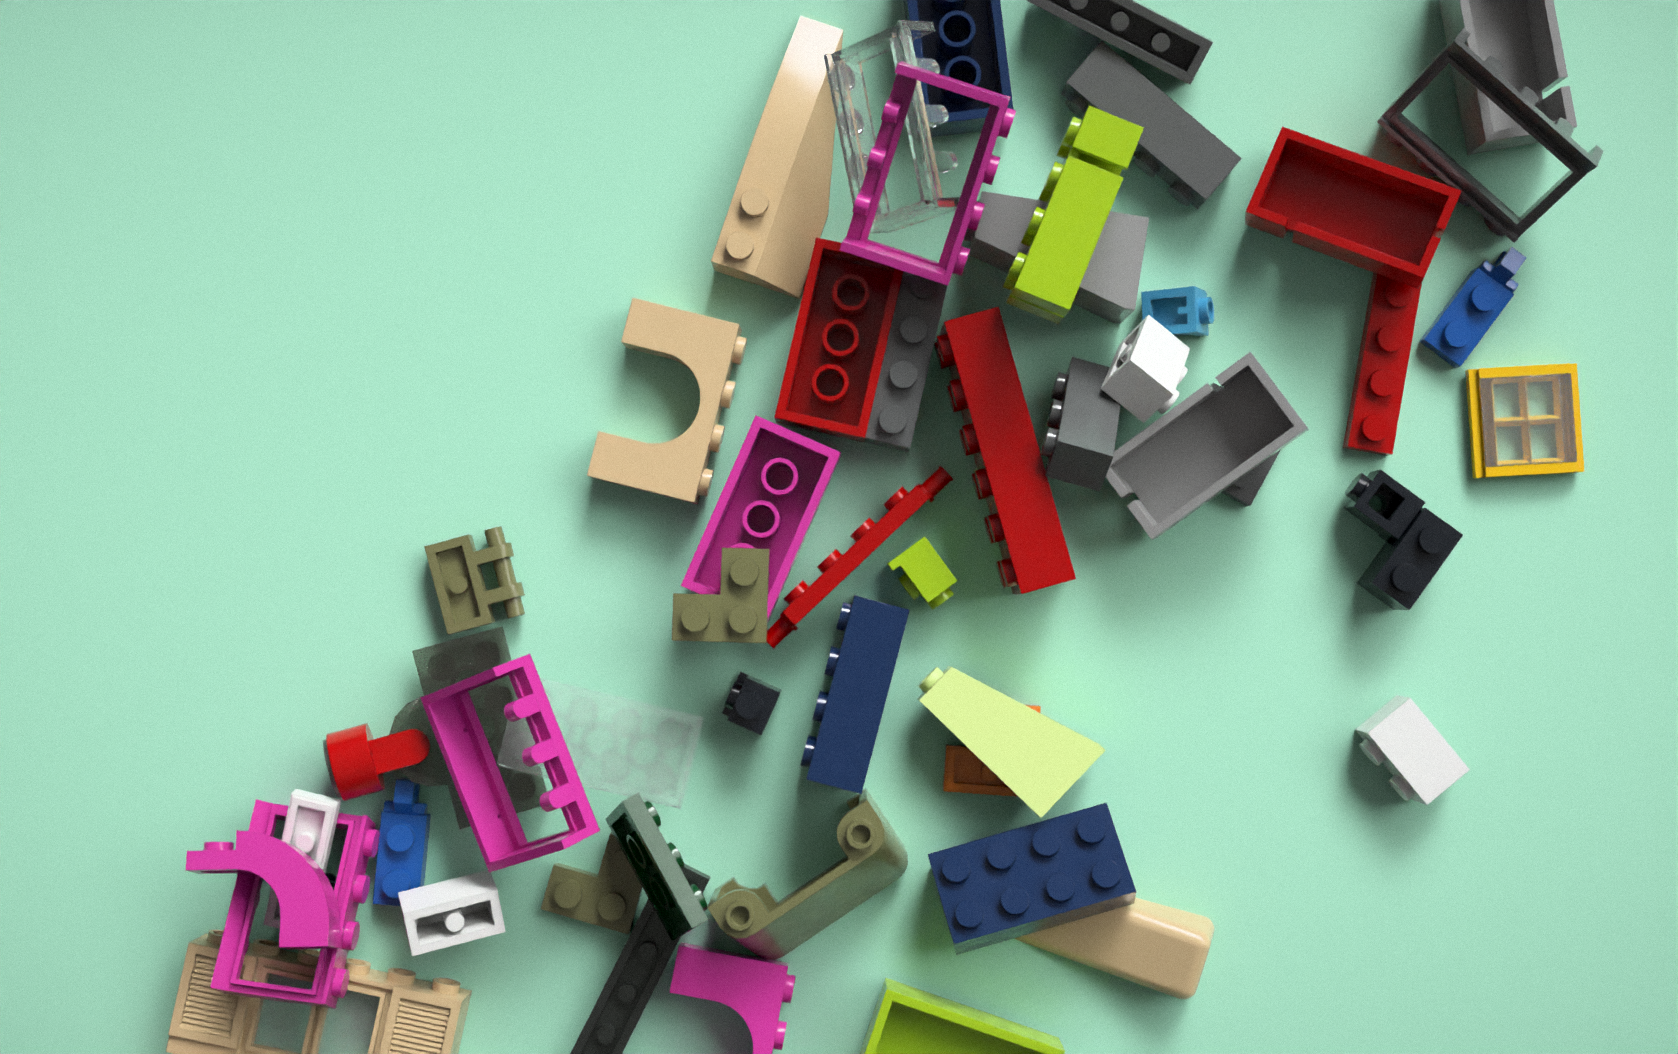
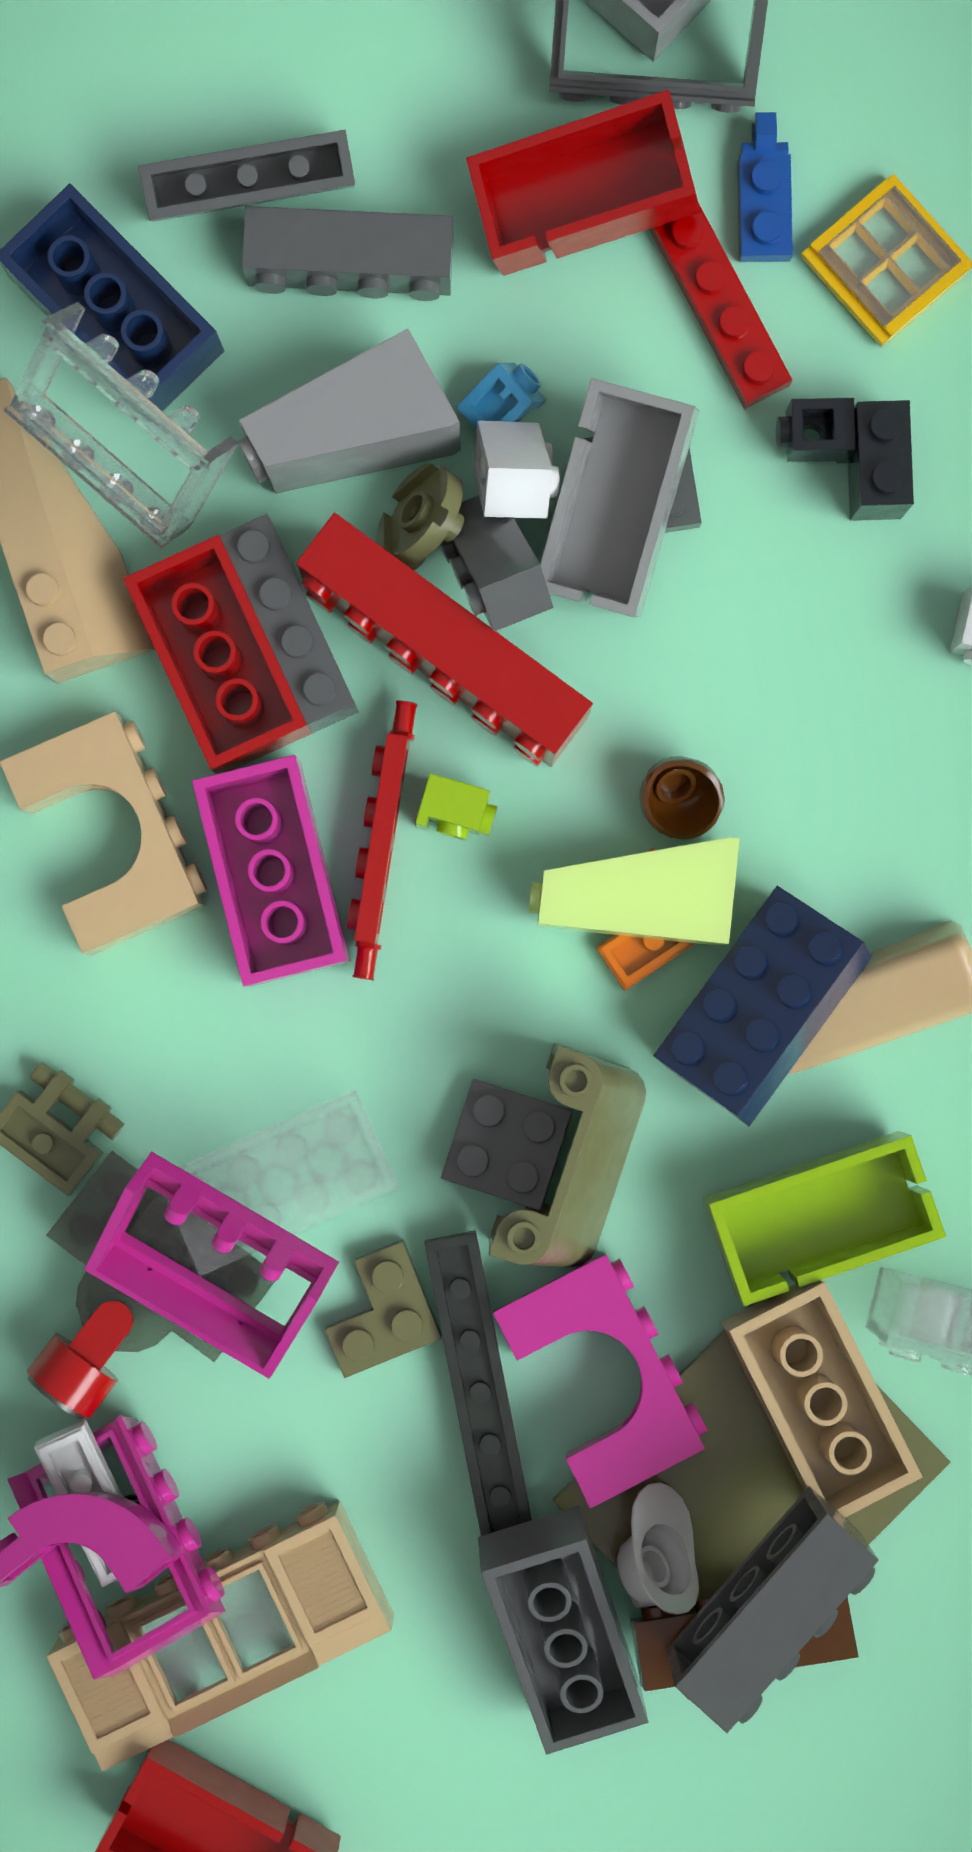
camera: 40 degrees left, 0 degrees up
(401, 844) = (177, 1420): blue hinge -> none
(451, 912) = (264, 1442): white brick -> none
(657, 866) = (417, 1254): dark green plate -> none
(738, 611) = (311, 971): olive plate -> none
(751, 703) = (390, 1045): black brick -> none
(778, 834) = (506, 1144): none -> dark grey plate
(856, 694) = (476, 958): dark blue brick -> none
(879, 162) = (124, 459): dark pink window -> none
(1058, 353) = (424, 515): none -> olive plate
(1076, 210) = (331, 360): lime piece -> none
(1087, 688) = (681, 797): none -> reddish brown piece

